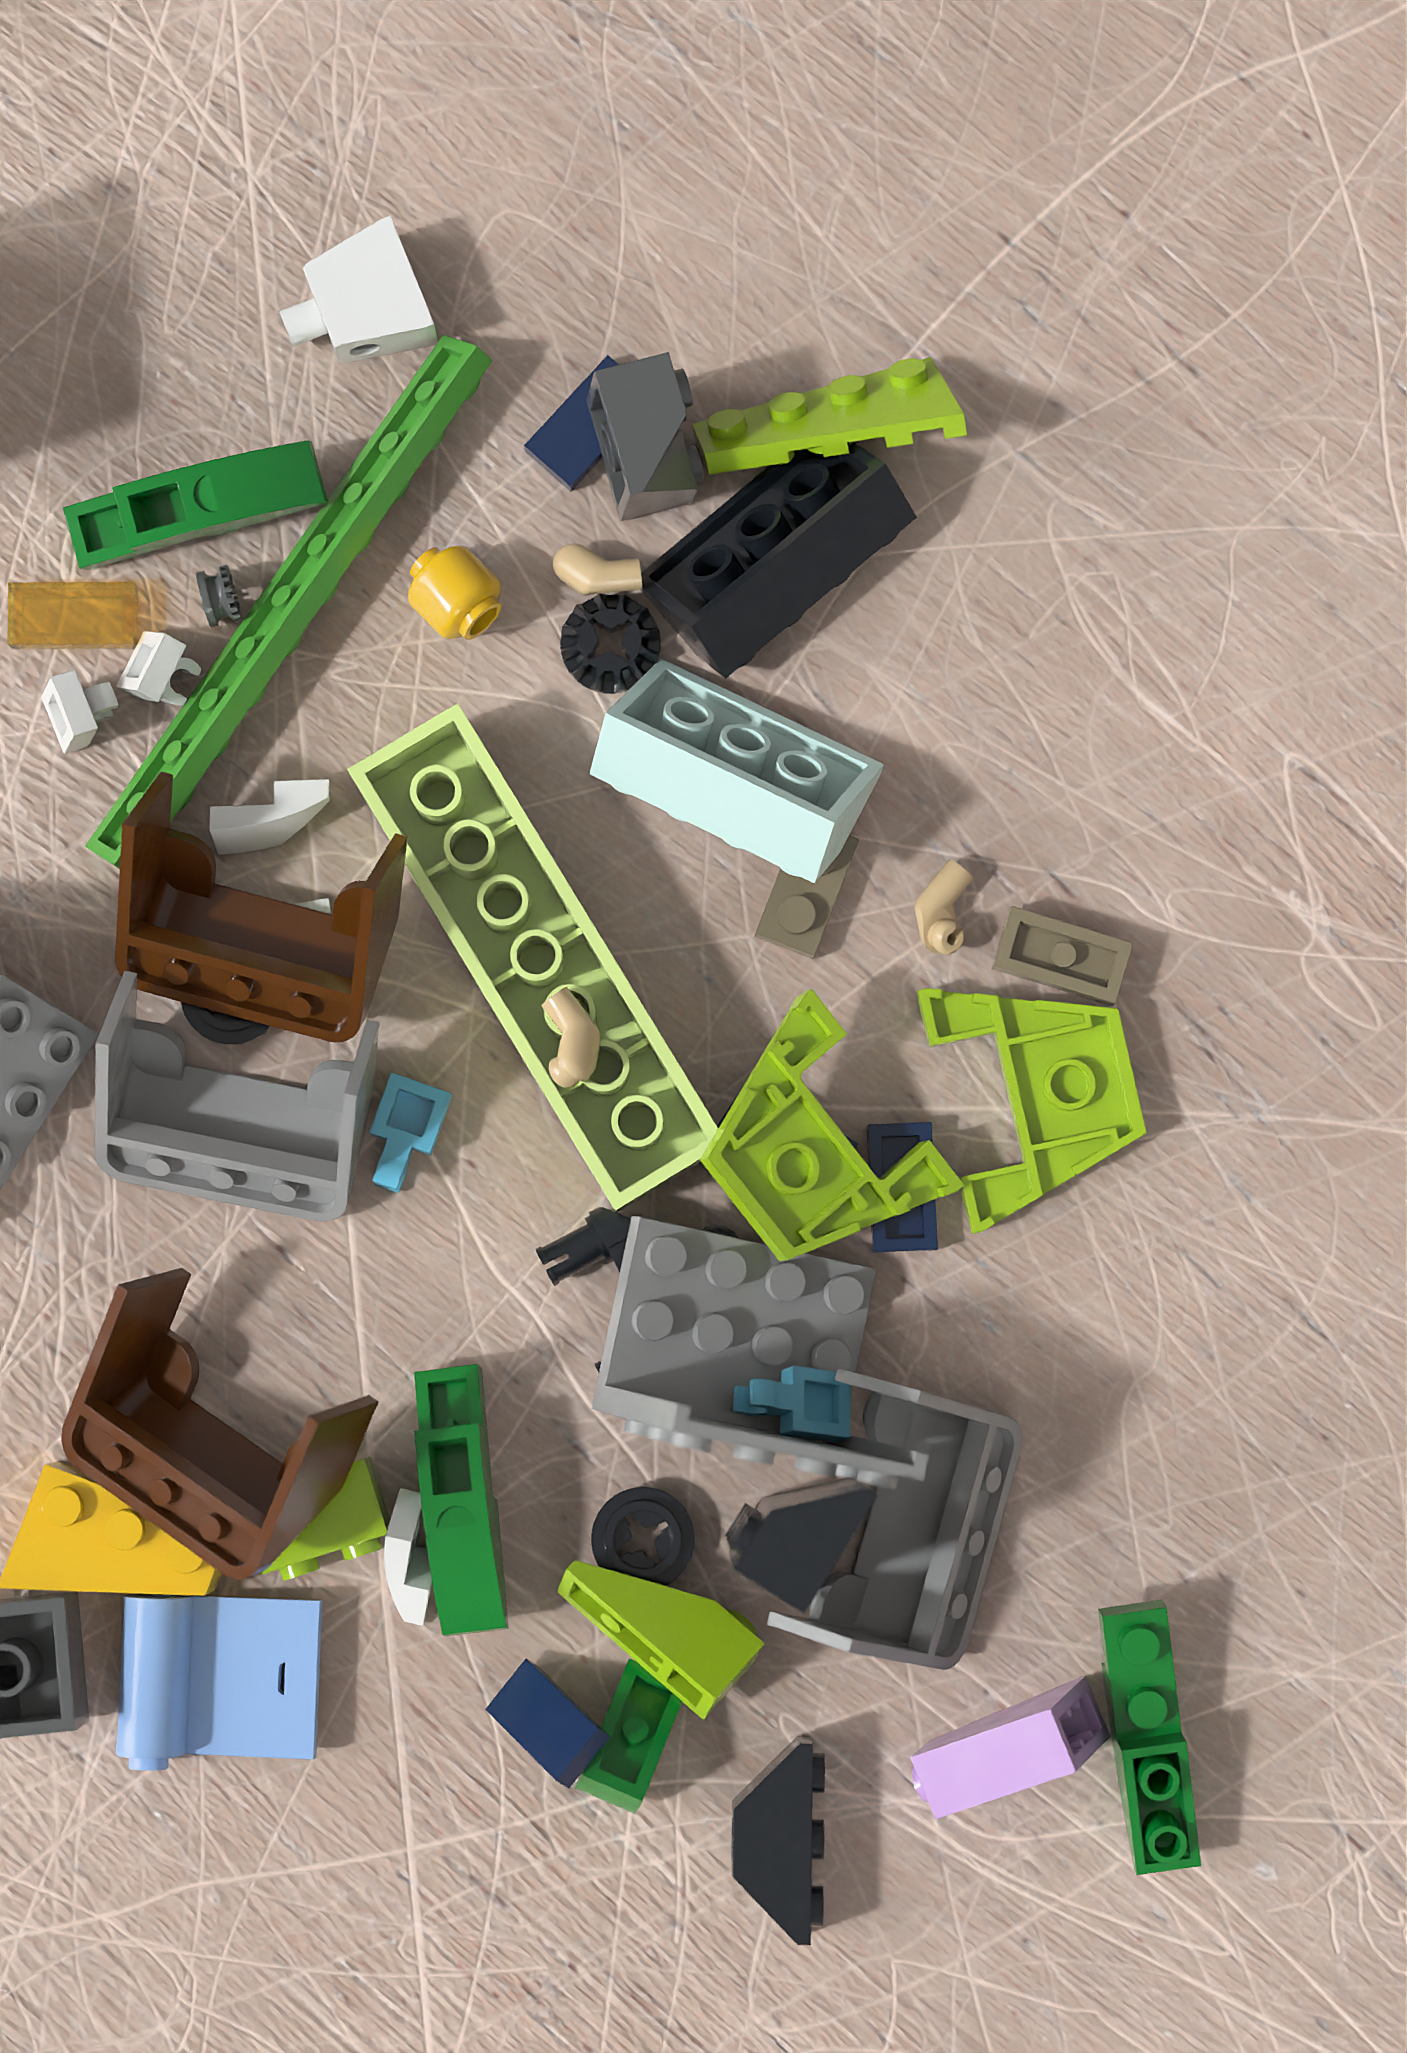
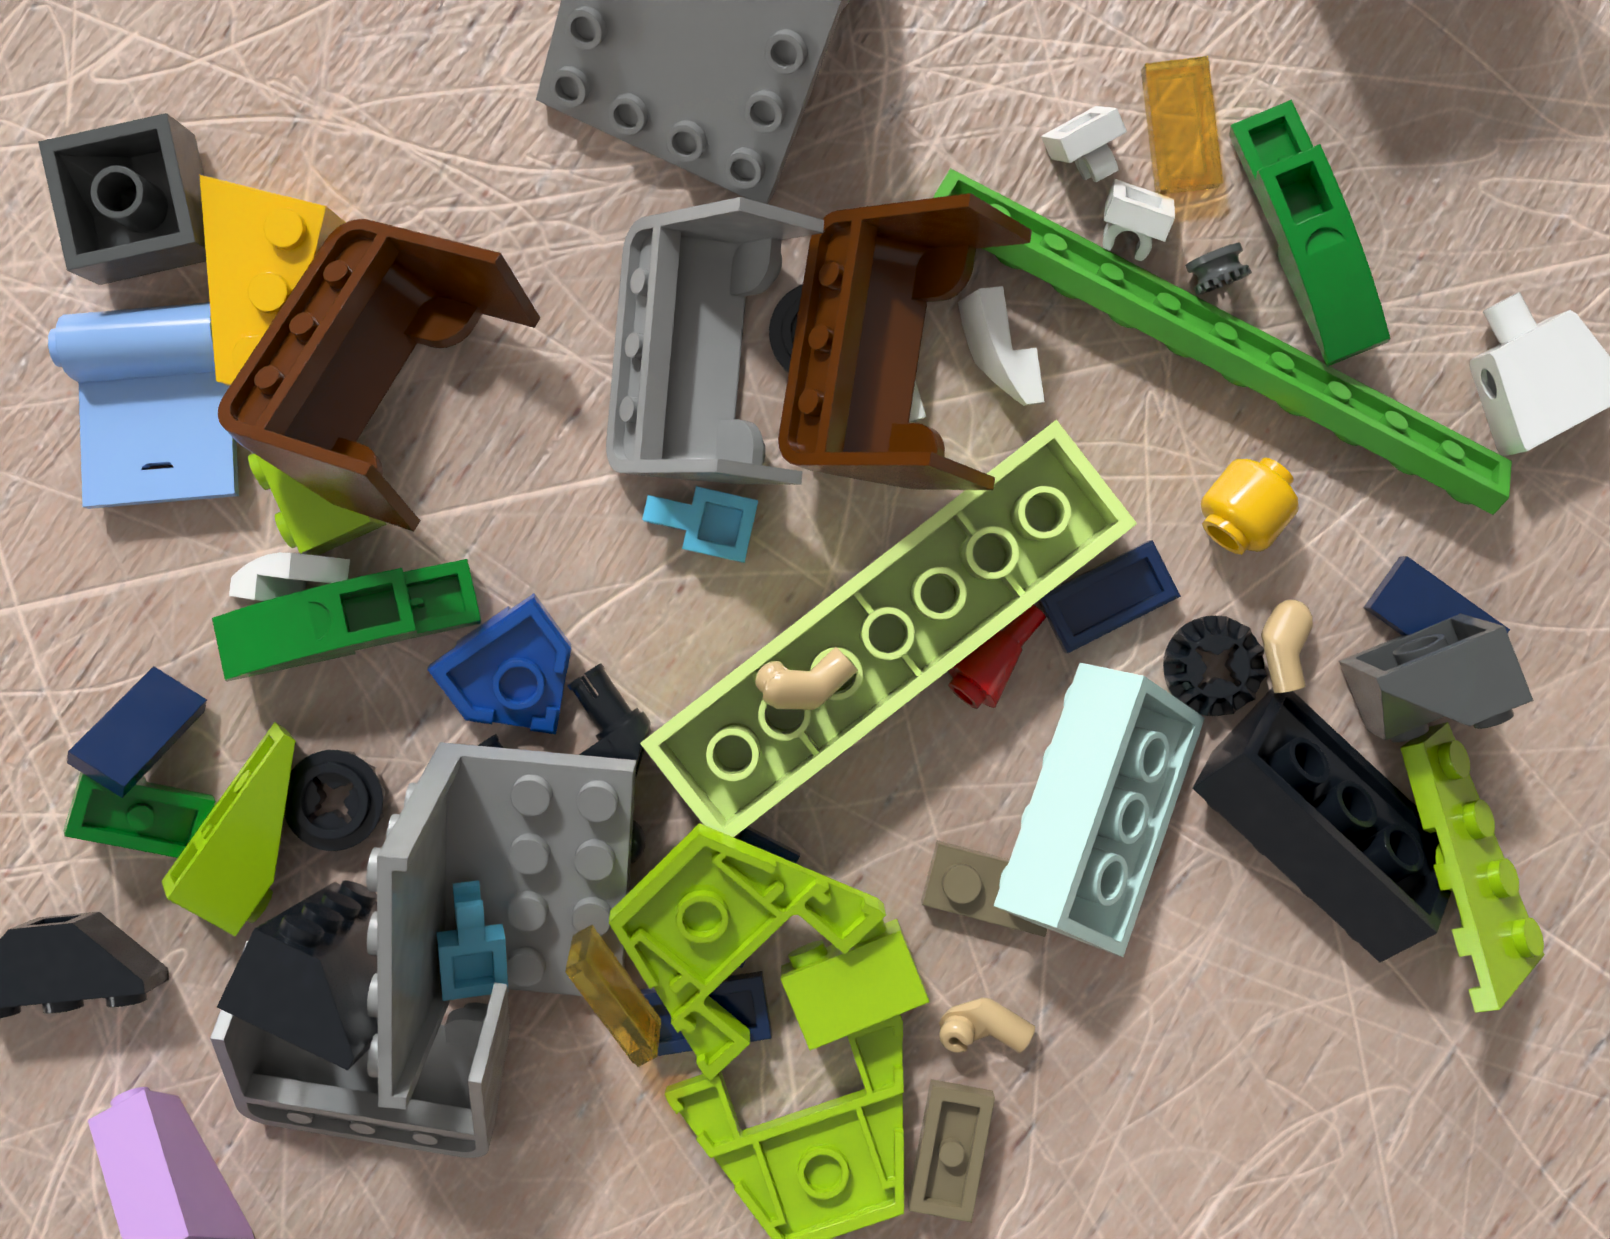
camera: 90 degrees right, 5 degrees up
(529, 739) = (1108, 596): none -> dark blue tile
(530, 1342) = (508, 669): none -> blue plate
(586, 866) = (987, 669): none -> red cone
(864, 1267) = (613, 996): none -> clear yellow tile
(884, 1033) = (853, 990): none -> lime brick

